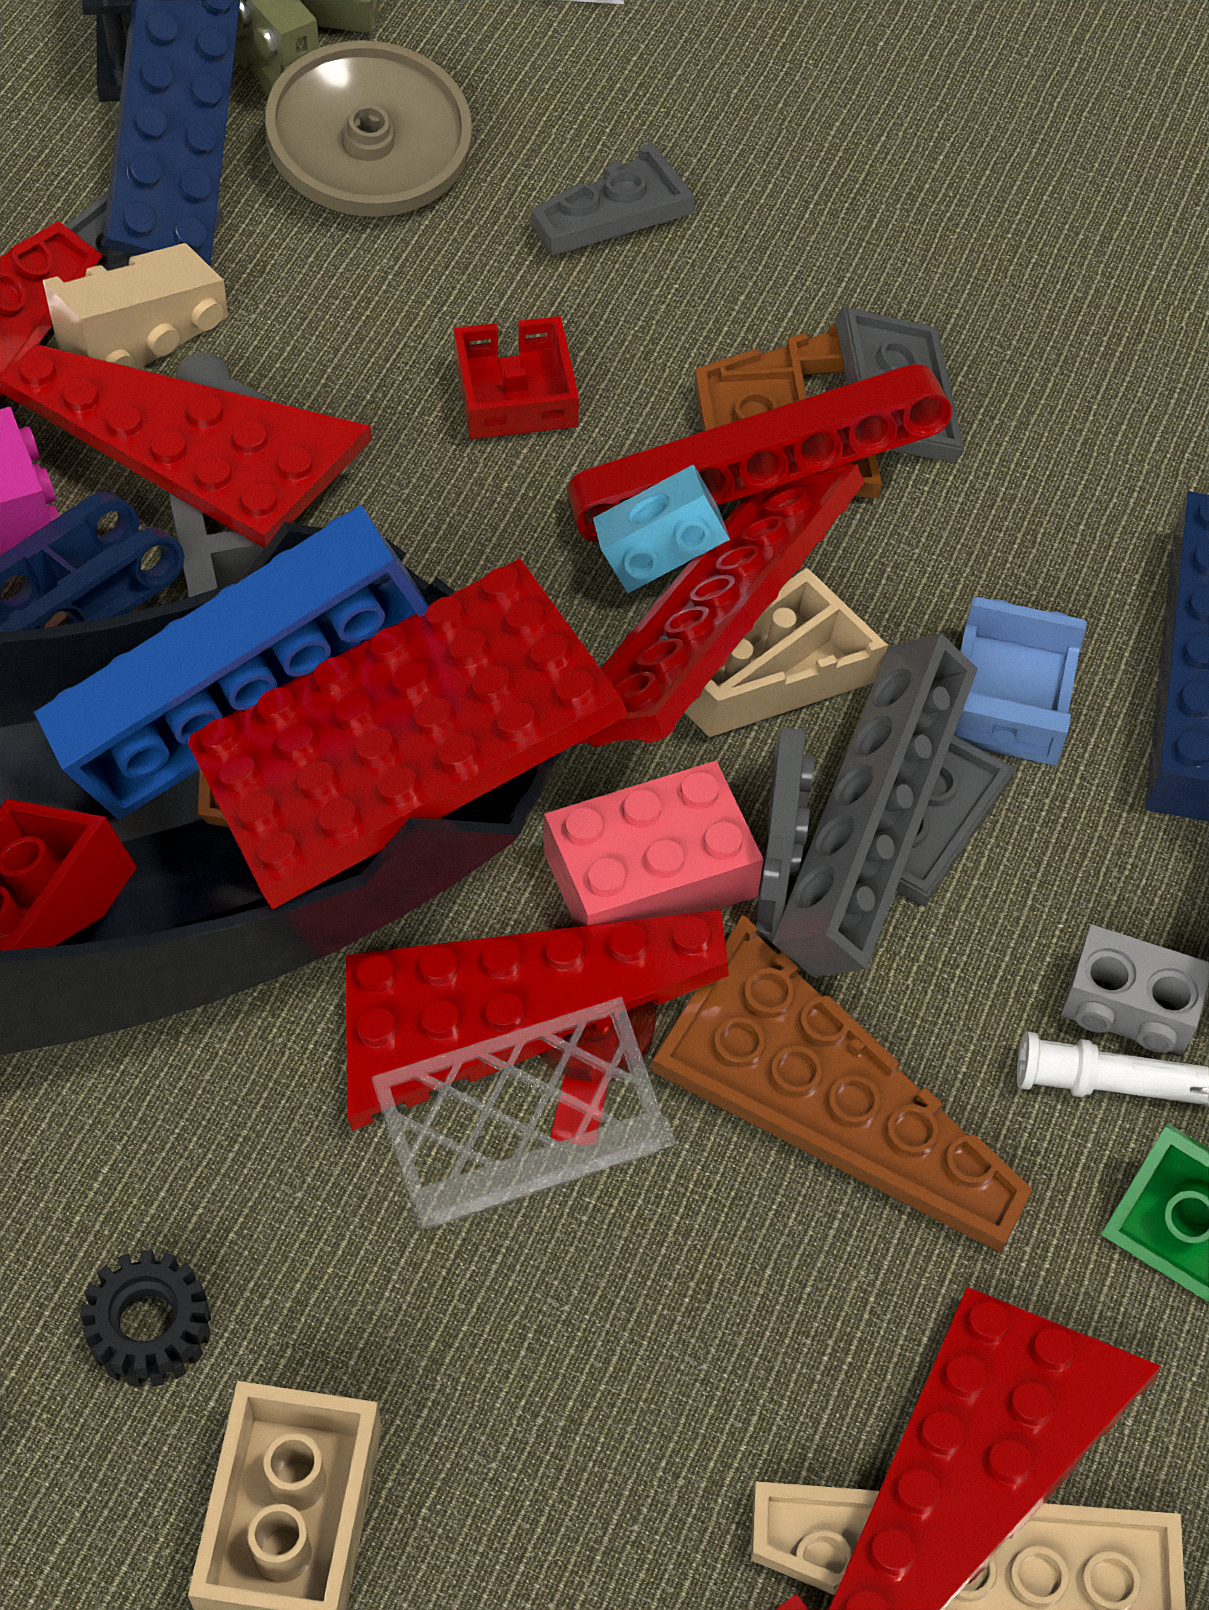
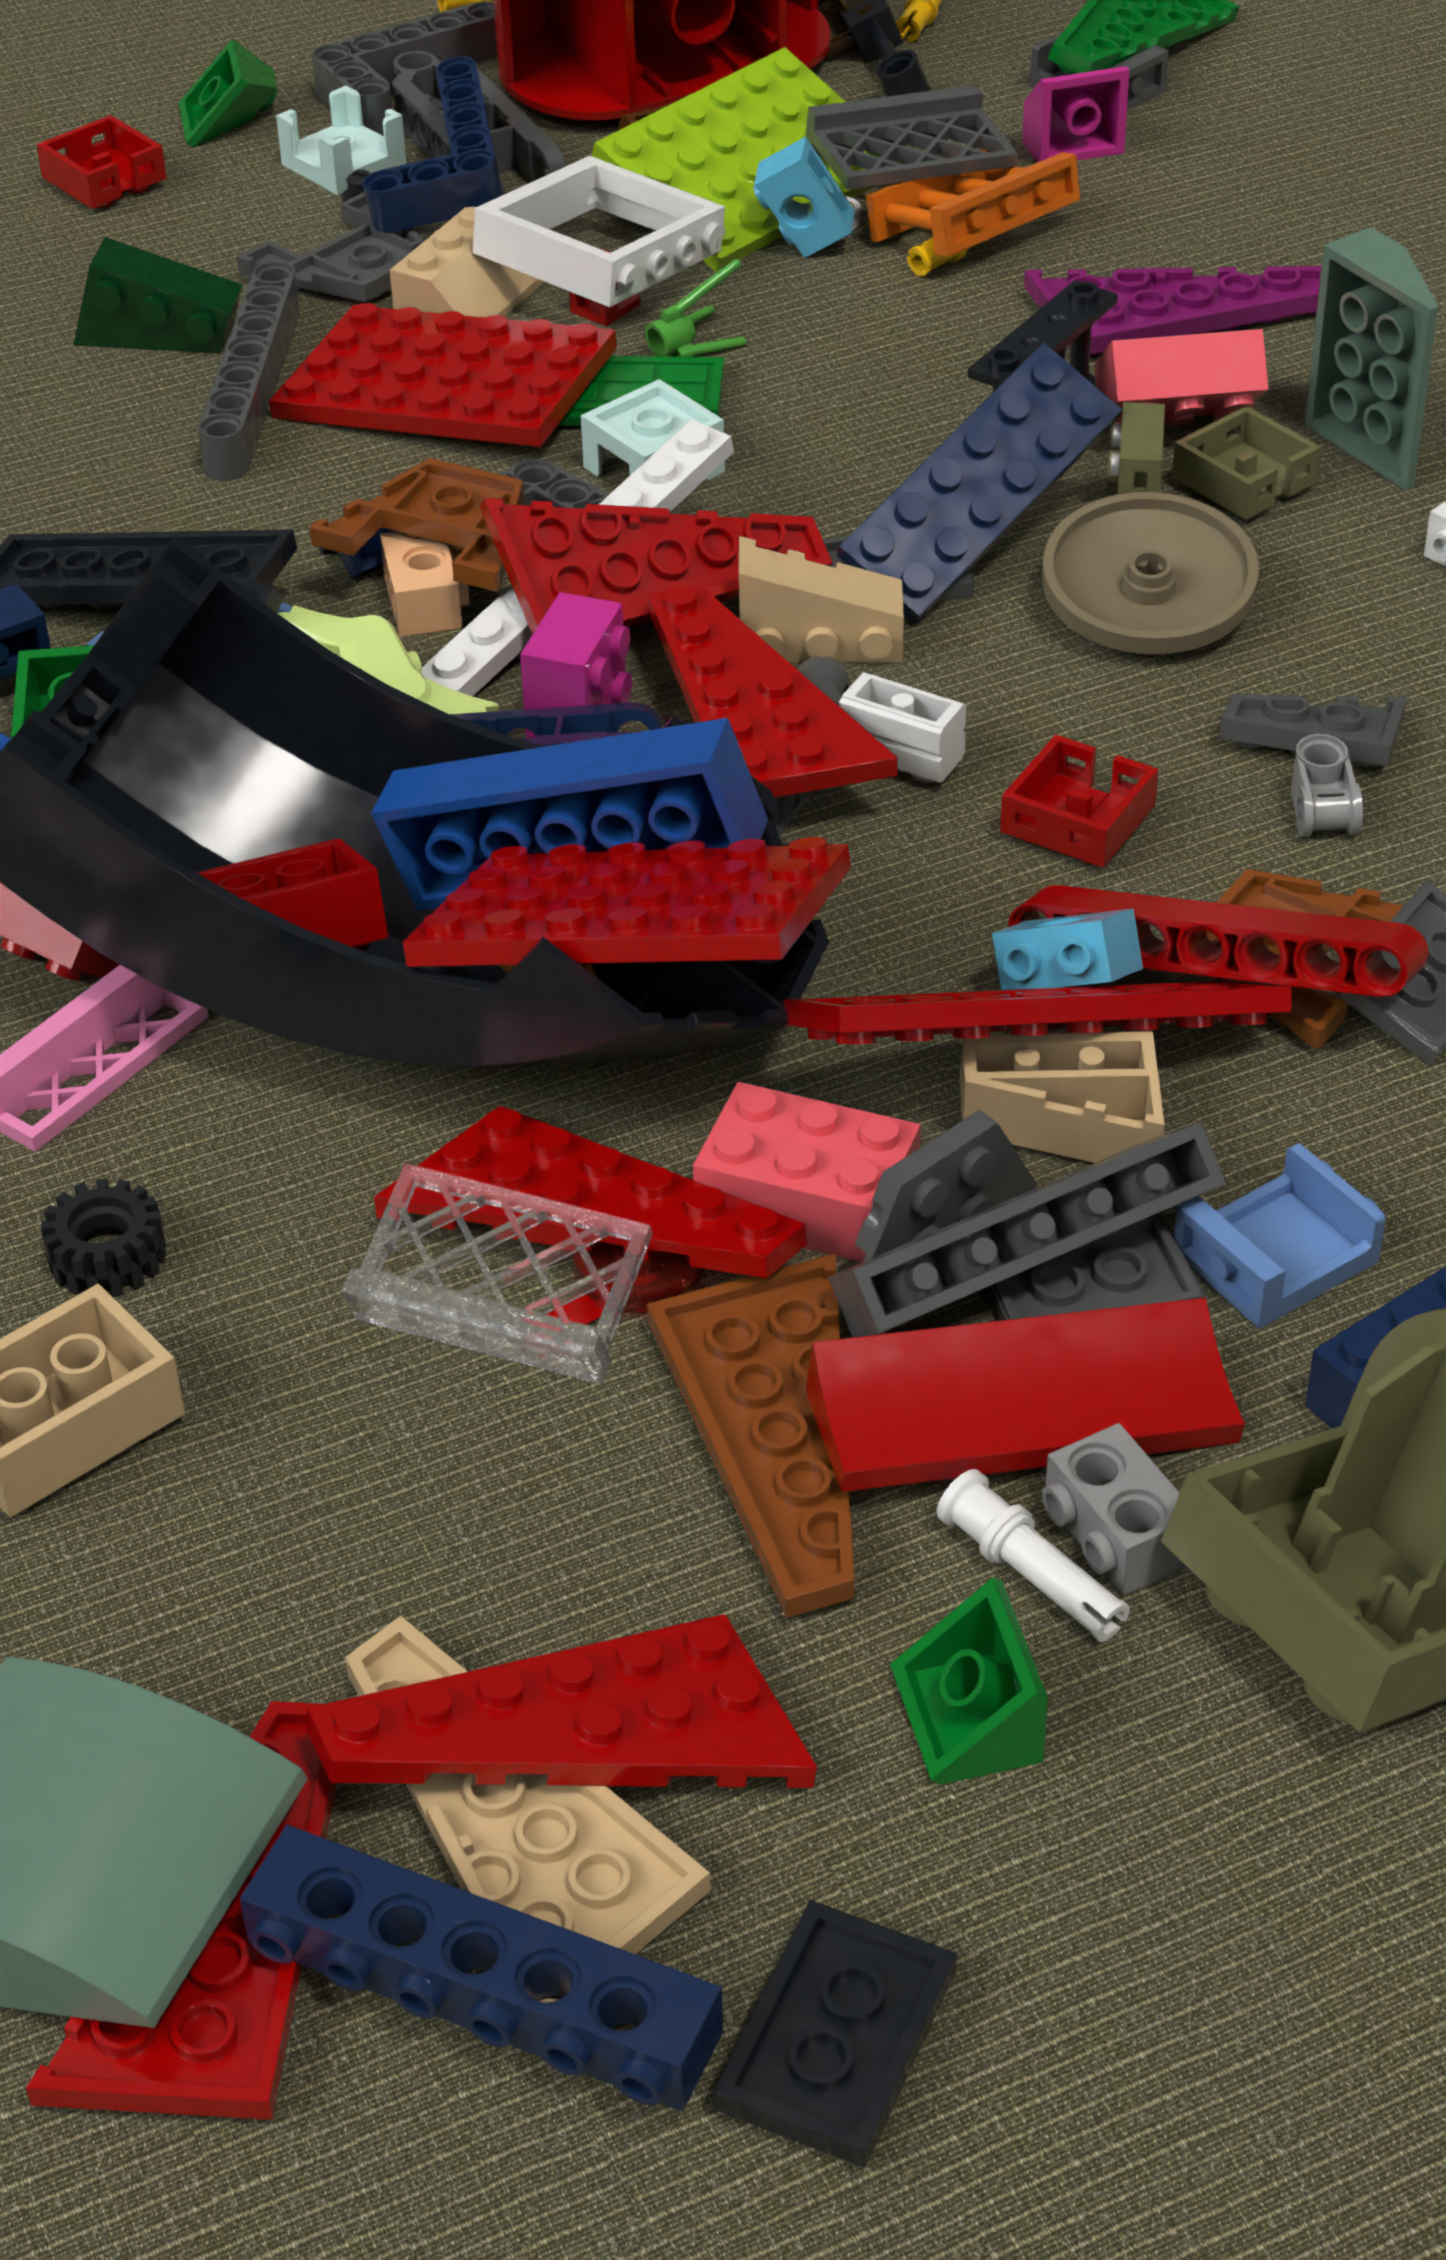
camera: 45 degrees right, 15 degrees down
(326, 381) = (911, 723): none -> white brick
(675, 259) = (1325, 787): none -> light grey piece
(990, 953) = (1018, 1390): none -> red arch

